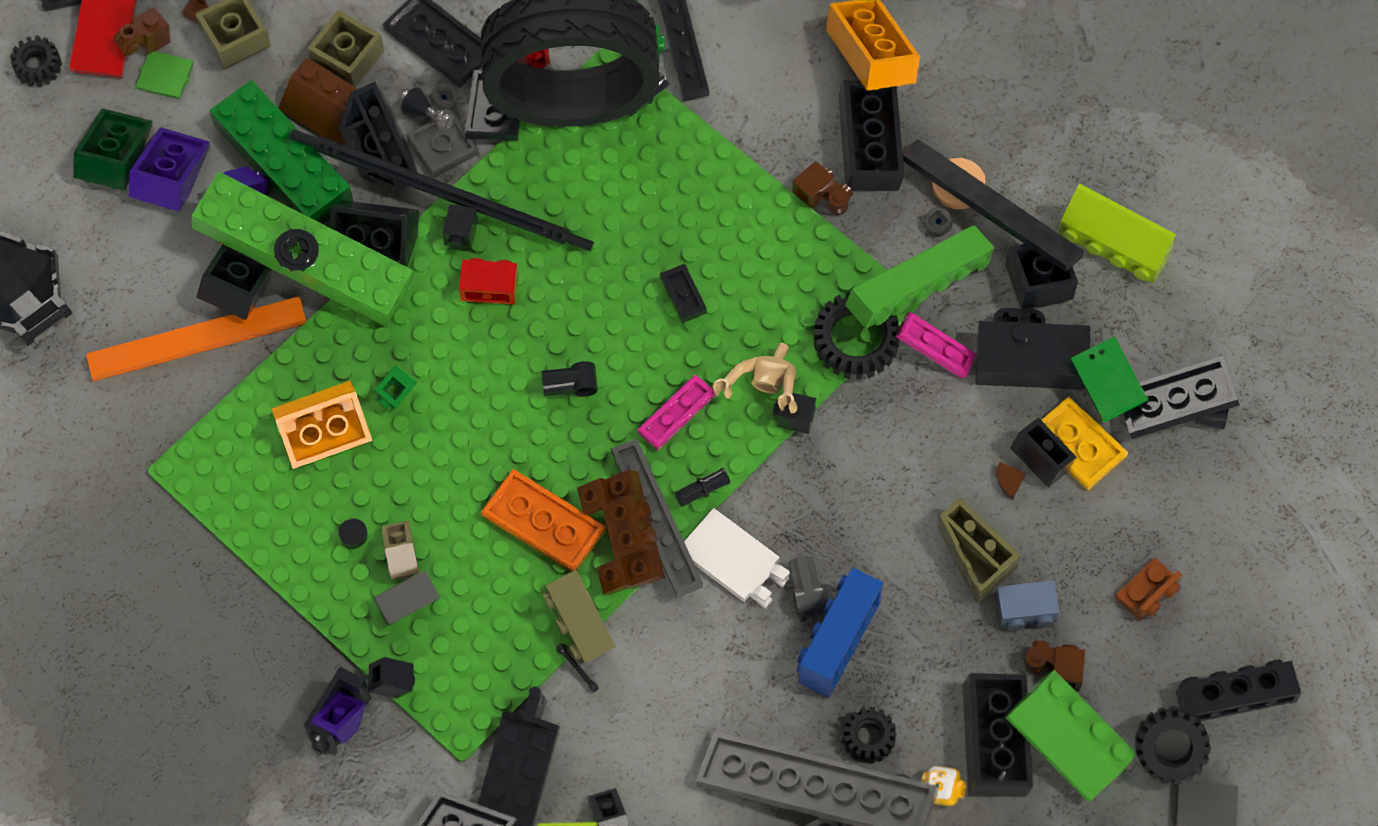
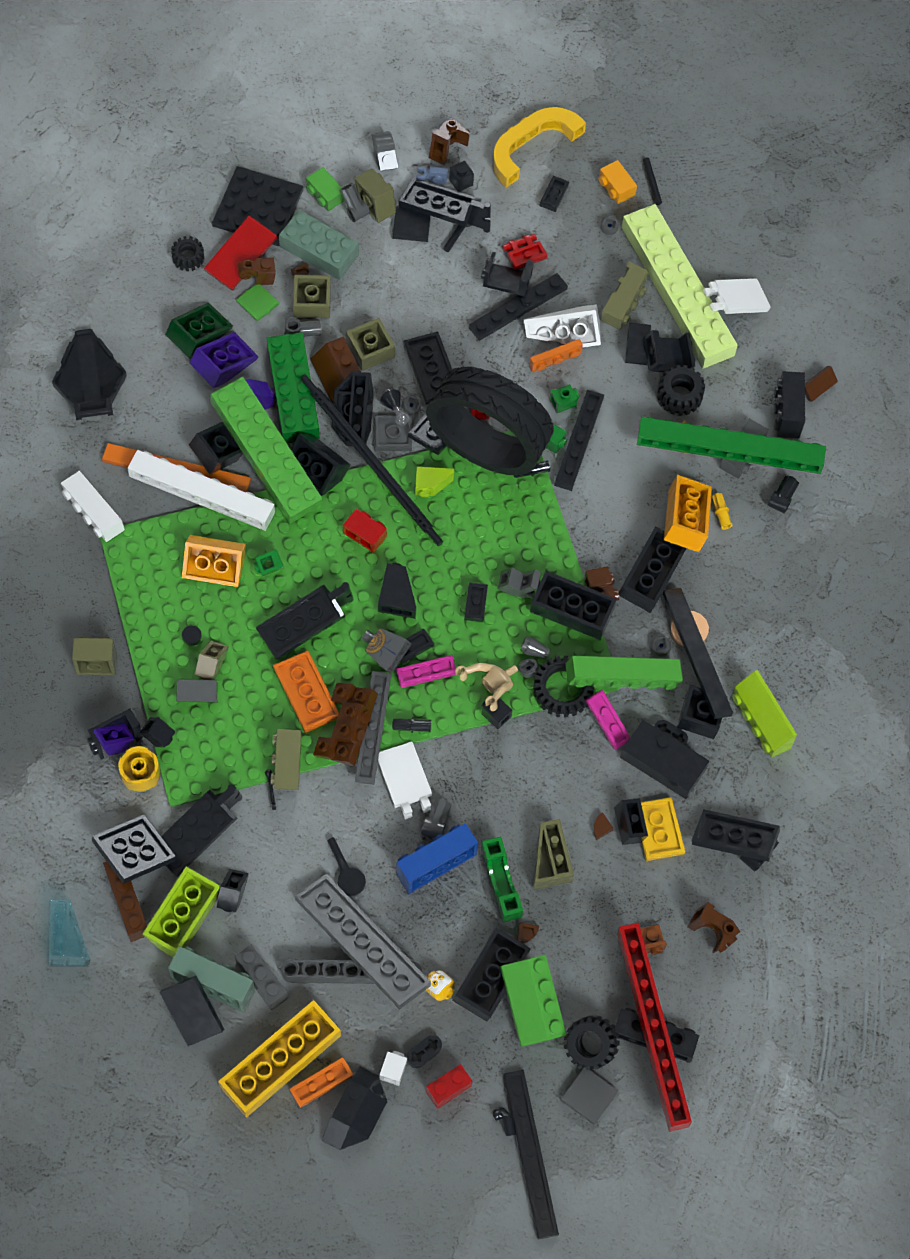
camera: 25 degrees right, 0 degrees up
(119, 443) = (92, 506): none -> white brick
(246, 628) = (94, 656): none -> olive brick
(248, 345) = (201, 490): none -> white brick
(255, 69) = (308, 327): none -> dark grey piece
(289, 240) = (257, 440): black gear -> none
(402, 723) = (137, 779): none -> yellow brick
(460, 227) = (369, 488): black brick -> none
(484, 433) = (304, 619): none -> black hinge
(531, 174) = (432, 480): none -> lime slope
(578, 379) = (378, 618): black piece -> none
(579, 334) = (396, 592): none -> black slope
(610, 410) = (386, 648): none -> dark grey torso
(639, 391) = (420, 642): none -> black tile
(722, 241) = (518, 583): none -> dark grey brick
(747, 721) = (350, 879): none -> black piece
(790, 309) = (534, 648): none -> dark grey cone
(799, 337) = (528, 668): none -> dark grey tile
(806, 230) = (573, 605): none -> black brick
(872, 718) = (425, 938): black tyre -> none
(906, 21) = (722, 511): none -> yellow axle
(953, 630) = (501, 881): none -> green arch
(1002, 659) = (526, 932): none -> reddish brown tile
(1027, 605) = (561, 908): sand blue brick -> none
(1065, 660) = (561, 955): reddish brown brick -> none
(1109, 379) = (699, 800): green container -> none
(1212, 513) = (708, 917): none -> reddish brown tile
(1237, 681) = (654, 1027): none -> red brick

